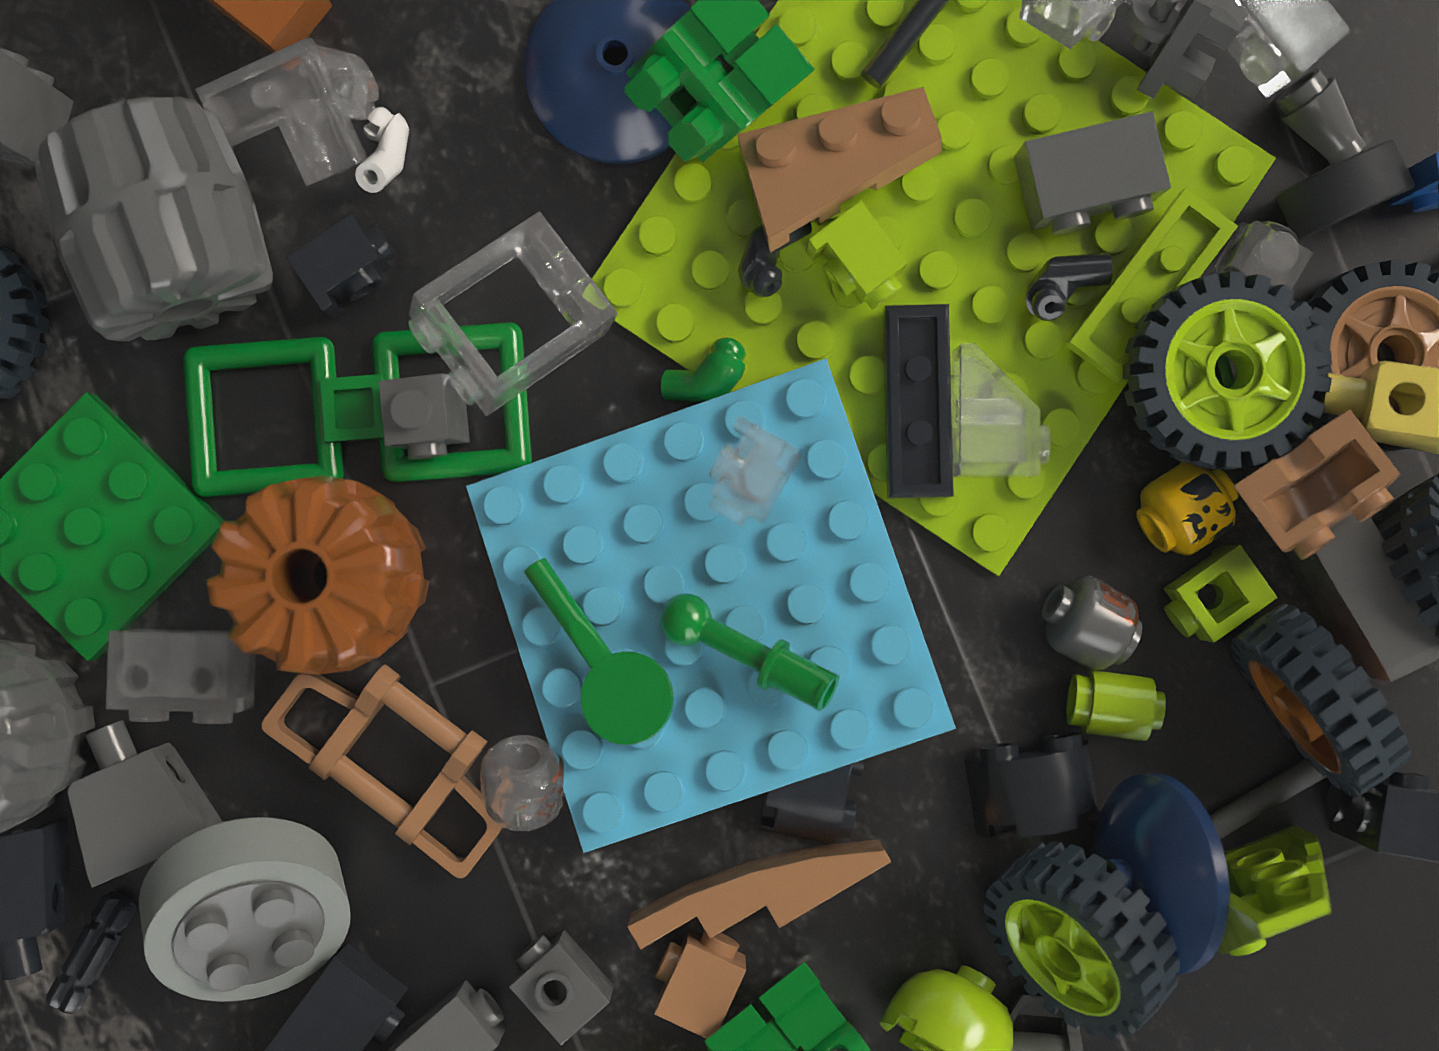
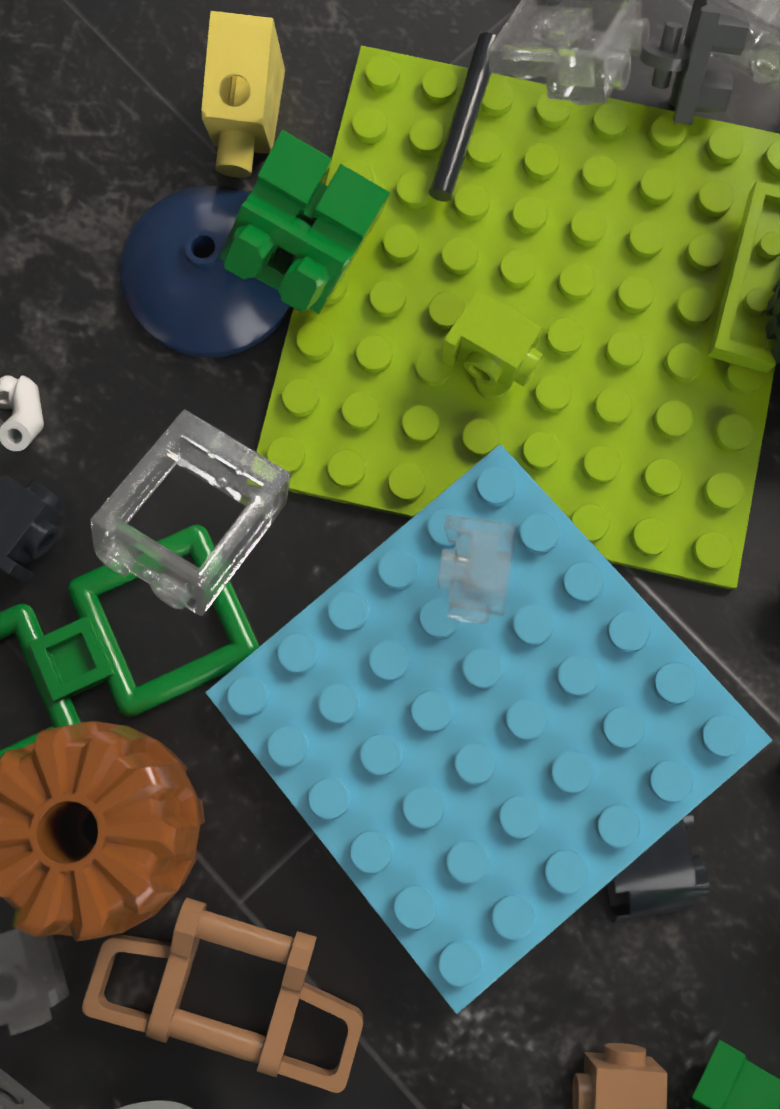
camera: 20 degrees left, 10 degrees down
(423, 415) = (139, 637): dark grey brick -> none
(522, 783) = (367, 966): clear head -> none
(624, 693) = (436, 832): green piece -> none
(688, 620) = (470, 737): green pin -> none
(713, 377) = (402, 501): green arm -> none
(758, 264) = (402, 369): black arm -> none
(782, 882) = (664, 964): medium nougat slope -> none
(821, 160) = (430, 270): medium nougat wing -> none
(918, 401) = (598, 455): black tile -> none
(993, 421) = (675, 443): clear slope -> none
(1061, 277) = (679, 298): black arm -> none
(1092, 172) = (669, 198): dark grey brick -> none

